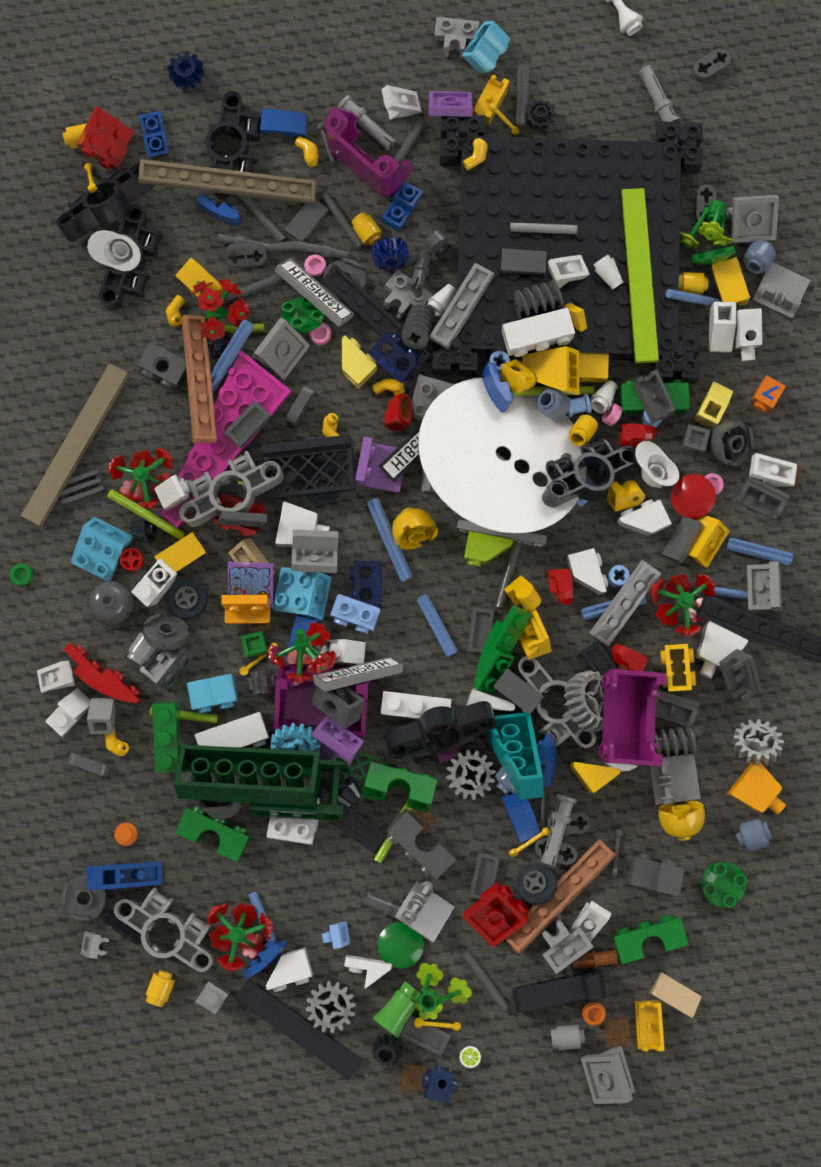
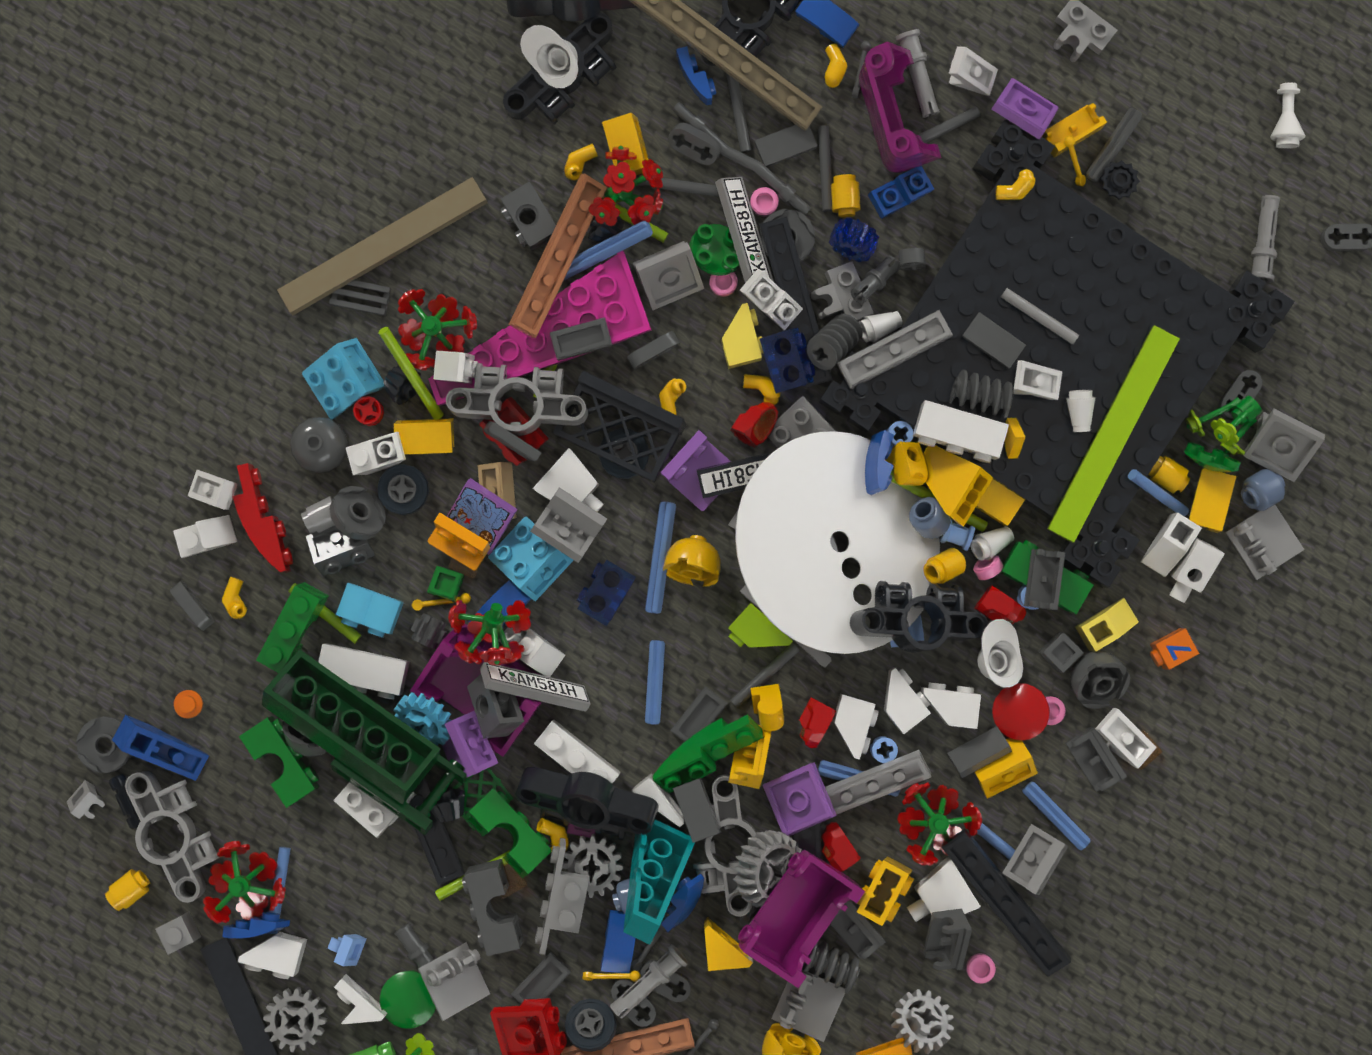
camera: 35 degrees right, 5 degrees up
(21, 574) = (241, 354): green tile -> none
(101, 716) = (235, 562): light grey brick -> none
(356, 613) = (573, 616): light blue bracket -> none
(359, 324) = (771, 299): none -> white slope
(434, 768) = (553, 830): none -> yellow arm
(466, 807) = (565, 899): none -> light grey bracket
(486, 47) = (1106, 66): medium azure brick -> none
(582, 643) = (799, 799): none -> medium lavender tile
(610, 537) = (902, 703): none -> white slope
(625, 495) = (946, 666): yellow leg -> none
(774, 684) = (980, 968): none -> bright pink tile

